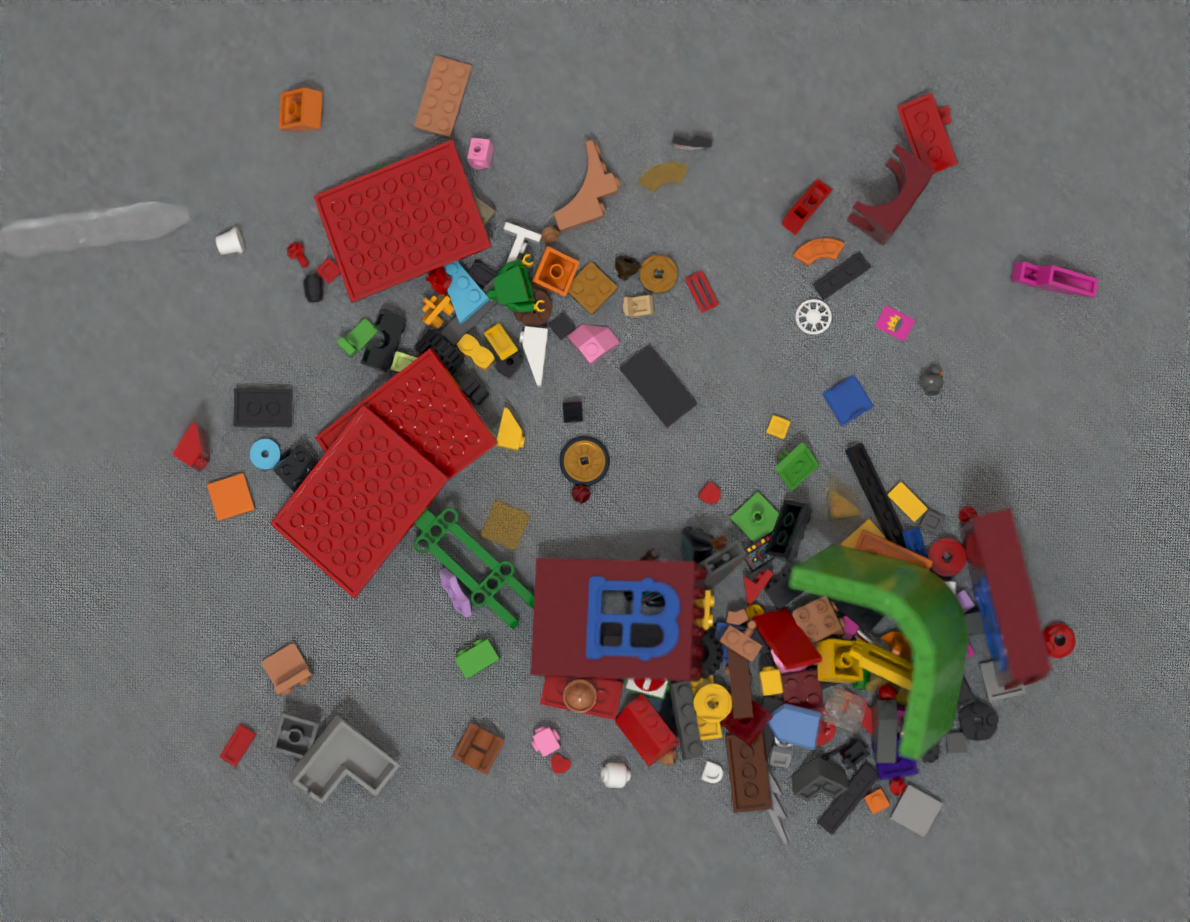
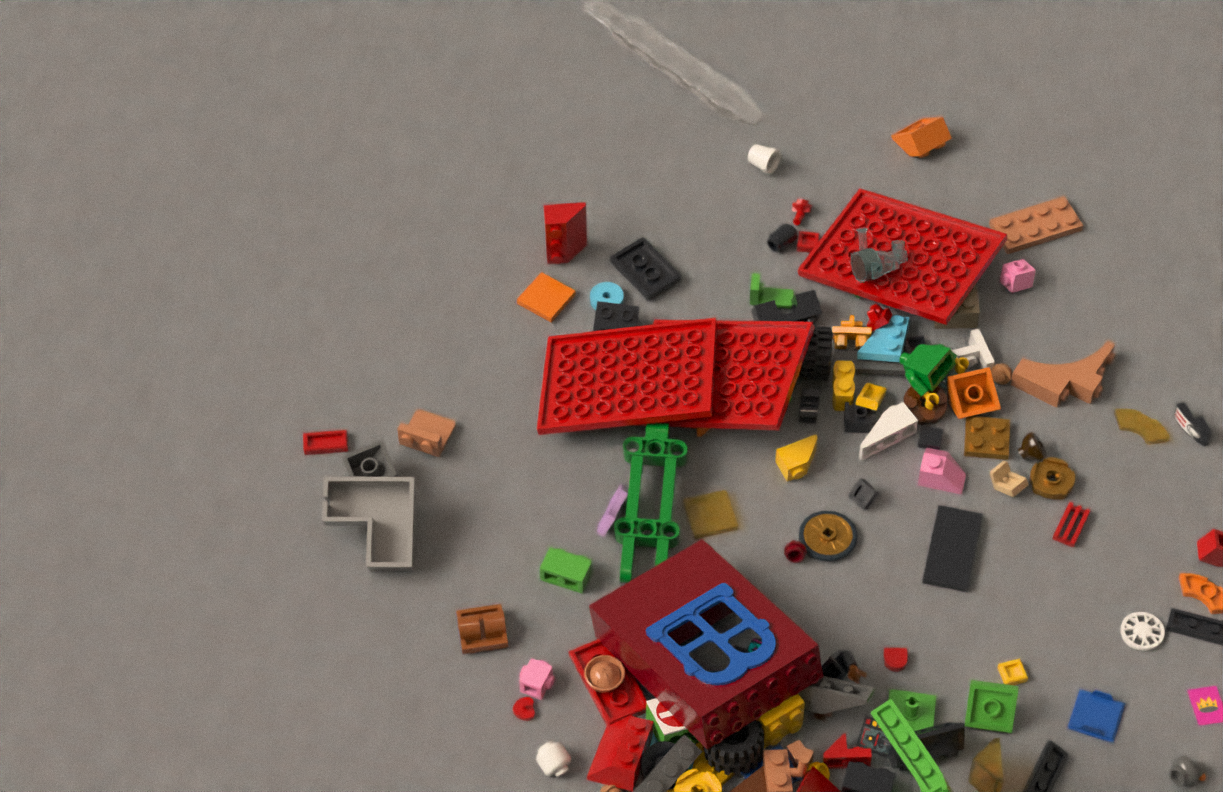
camera: 50 degrees right, 30 degrees down
(396, 259) = (872, 264): none -> clear light blue piece

